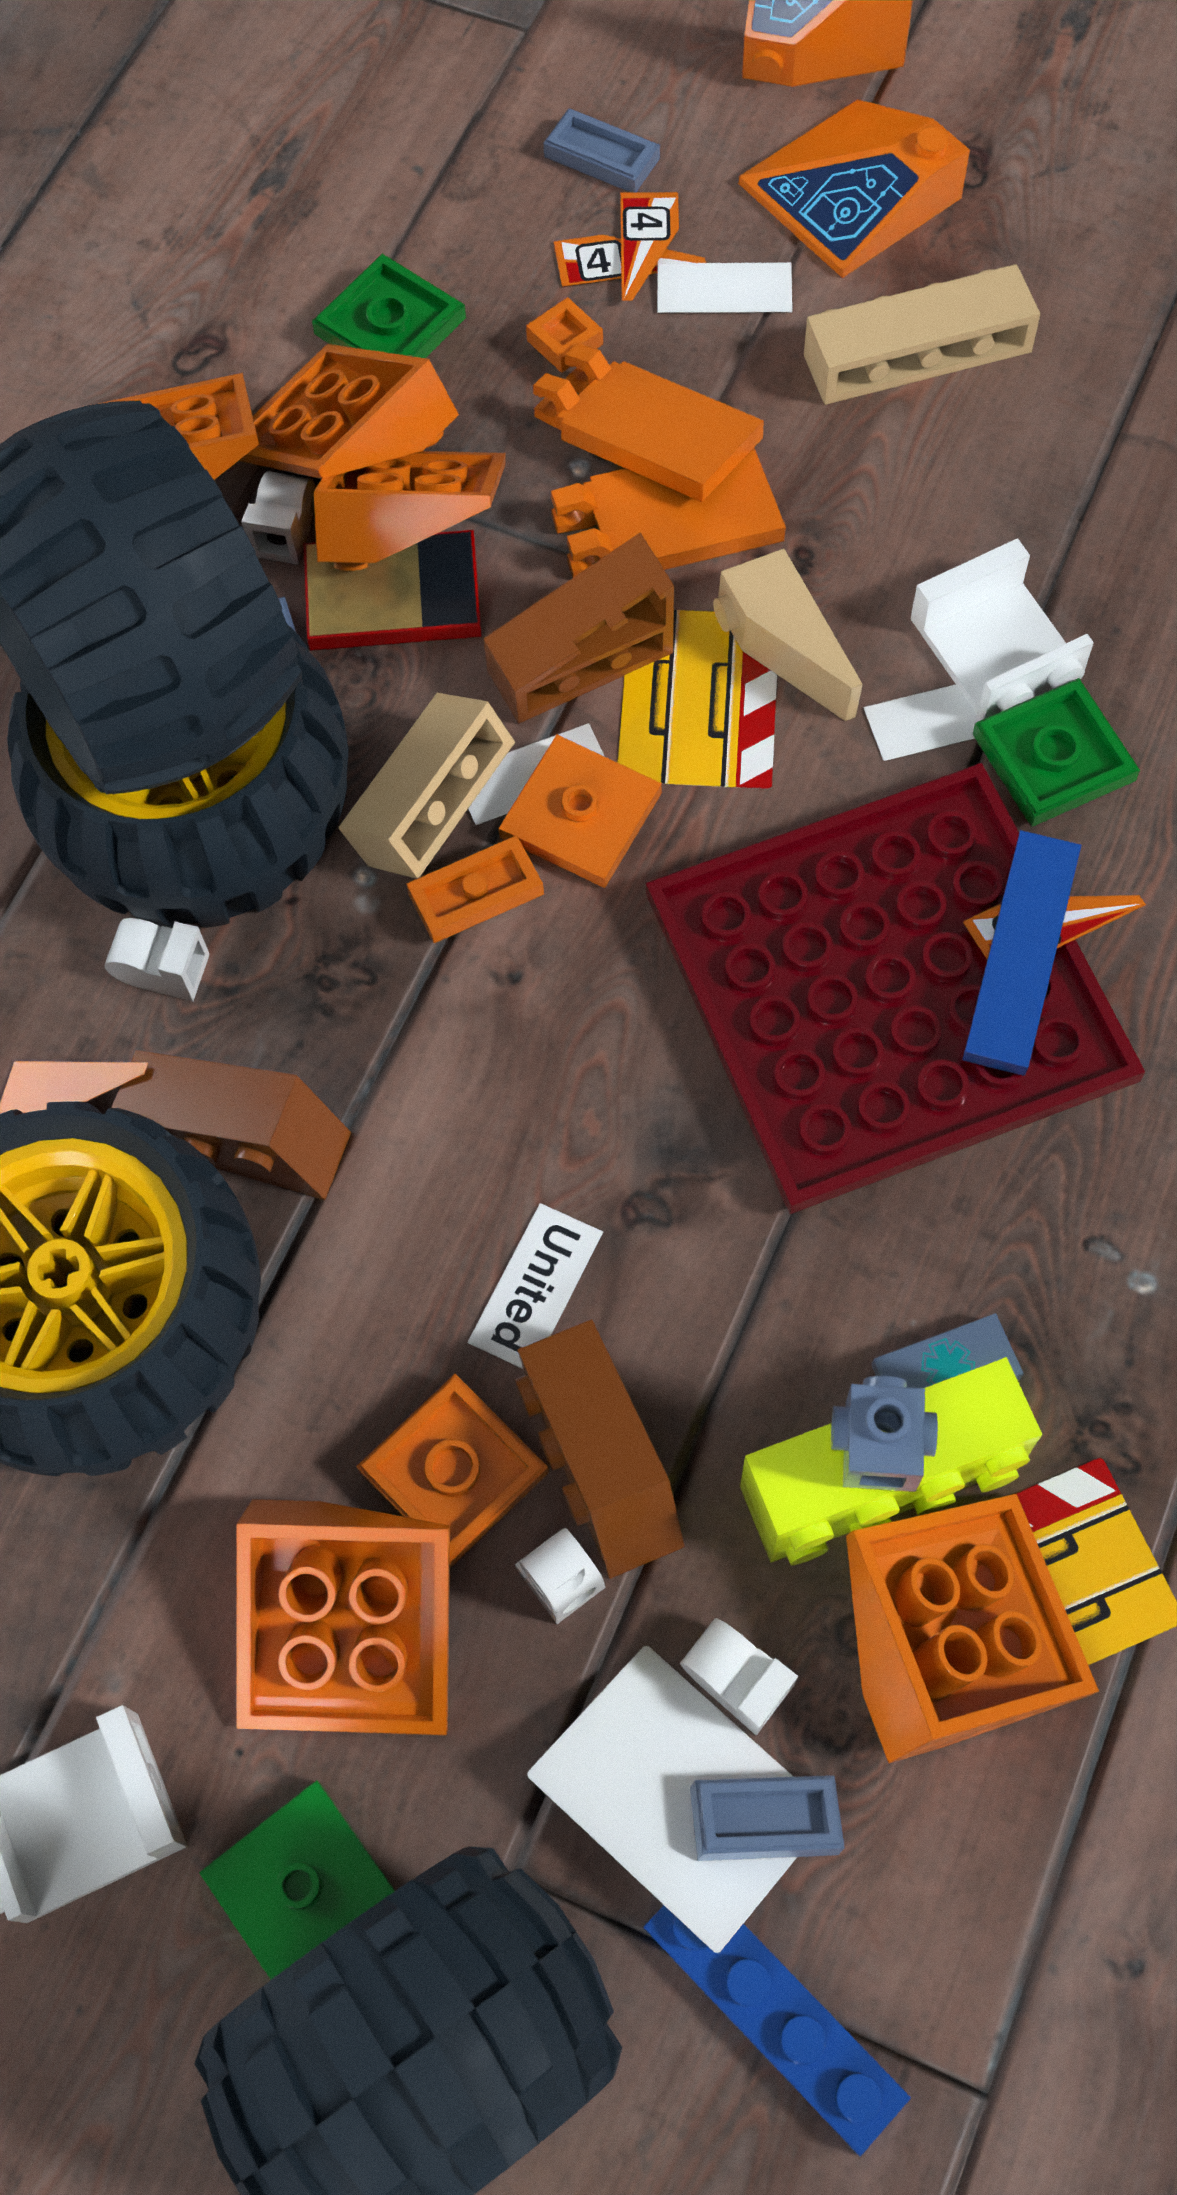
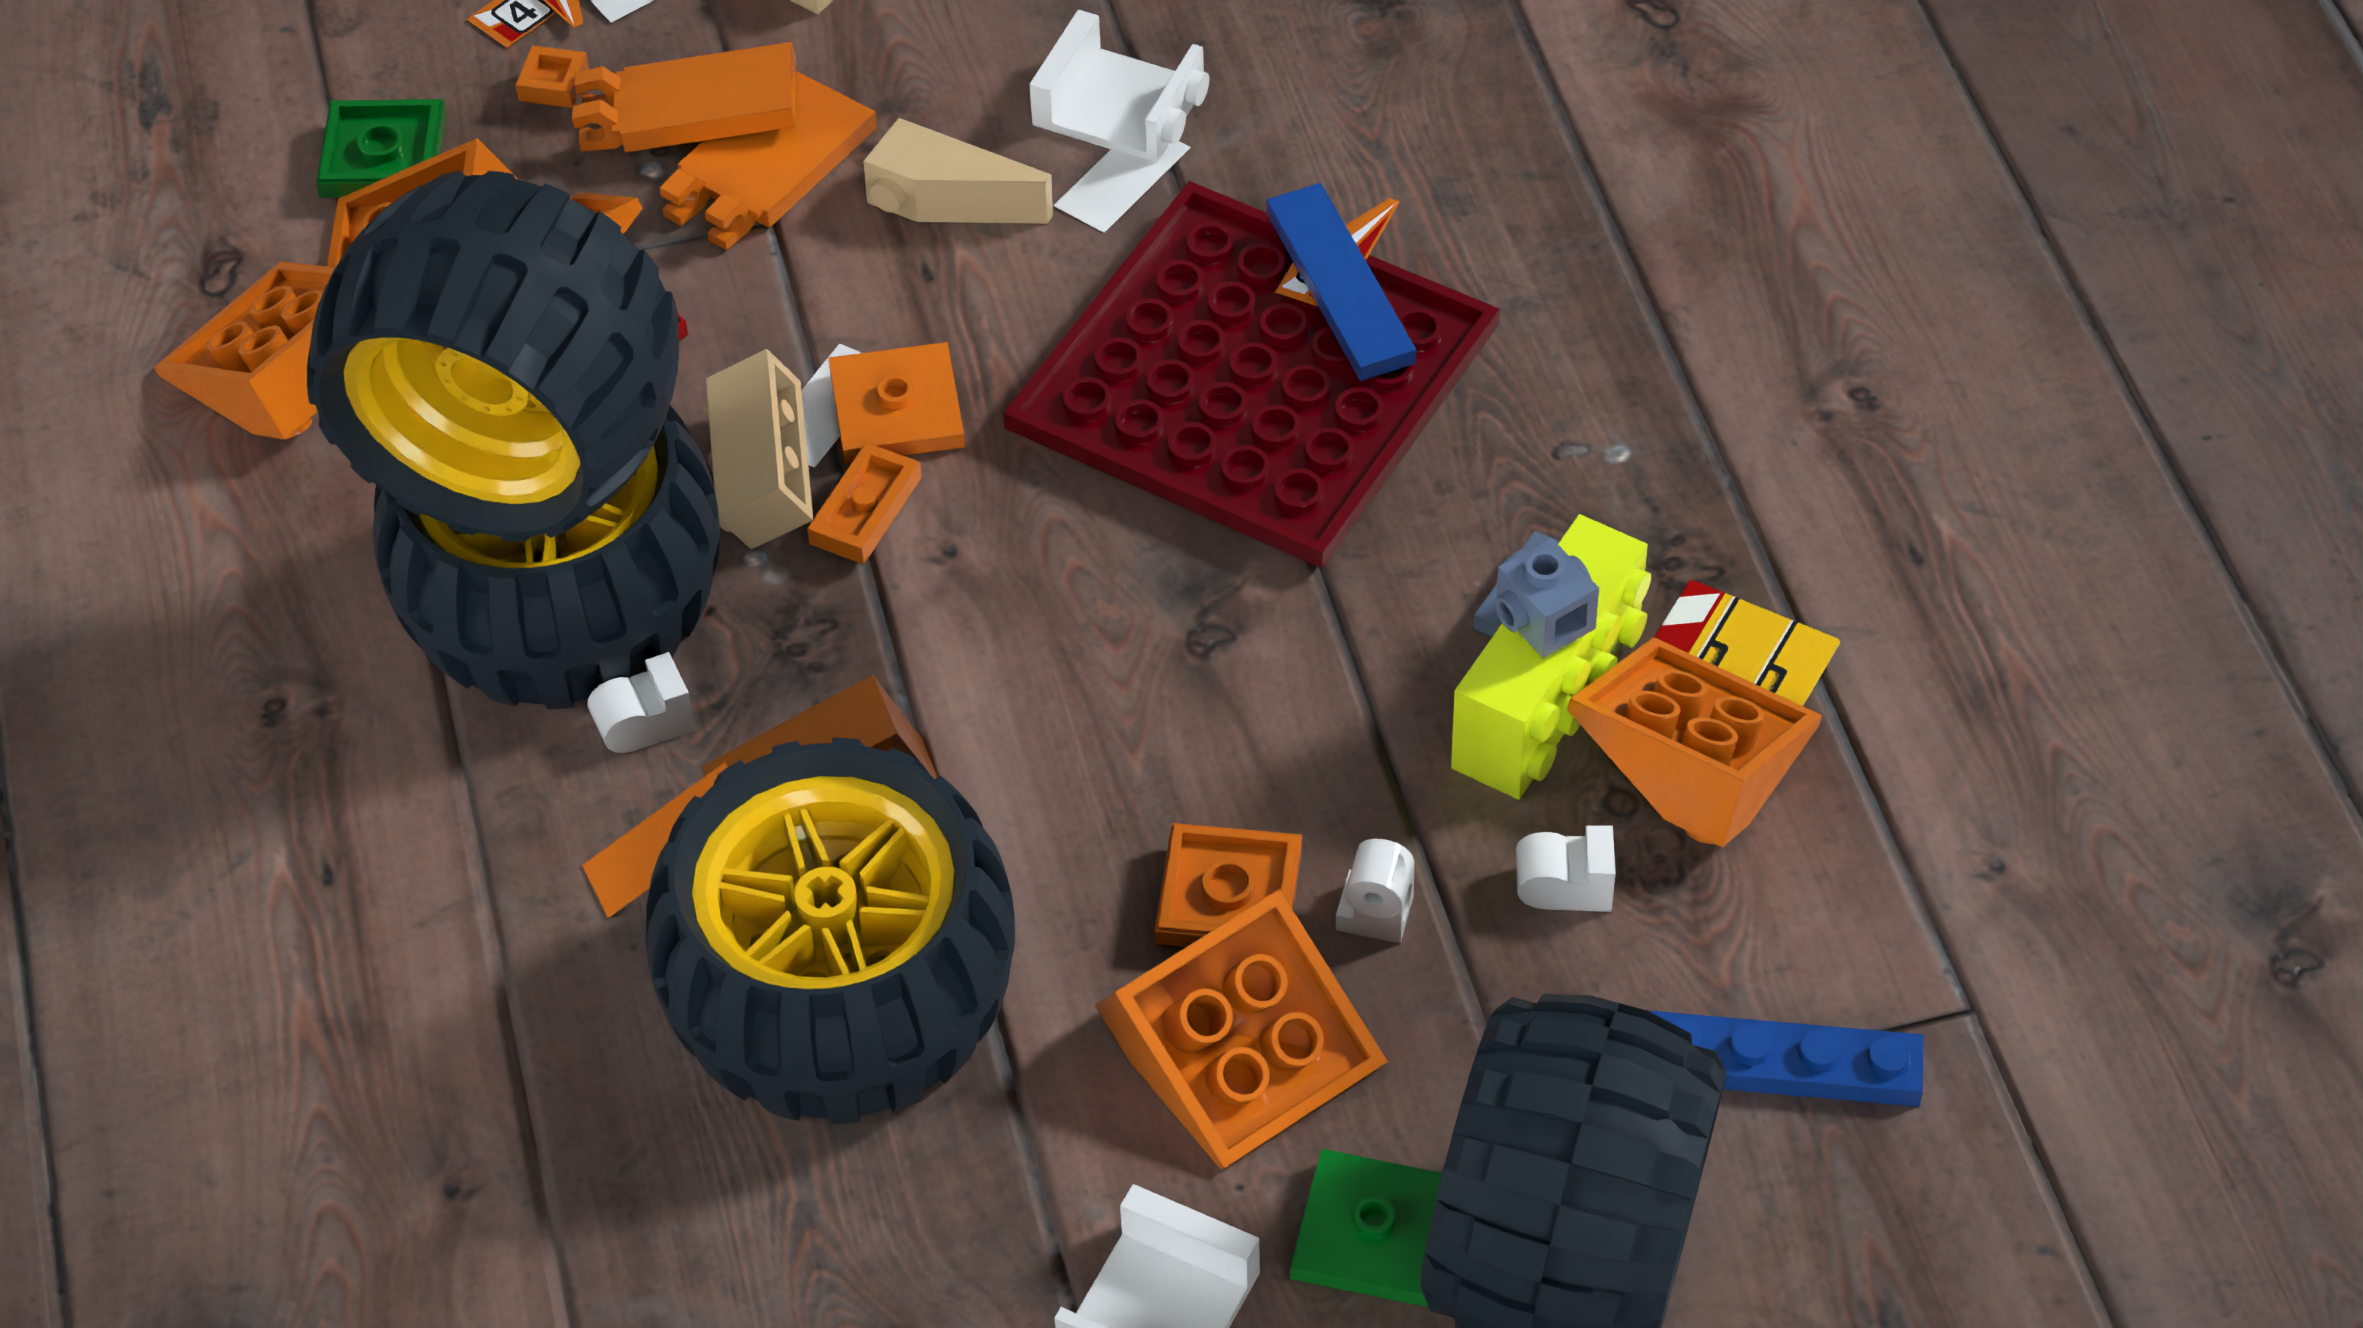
camera: 40 degrees left, 15 degrees down
(535, 1284) = (1172, 742): white sticker -> none
(585, 632) = (789, 264): dark orange wedge -> none
(602, 1448) = (1329, 786): dark orange wedge -> none
(628, 1784) = (1619, 958): white sticker -> none
(700, 711) = (912, 278): yellow sticker -> none
(766, 1818) = (1669, 941): sand blue tile -> none
(1055, 752) = (1235, 145): green plate -> none

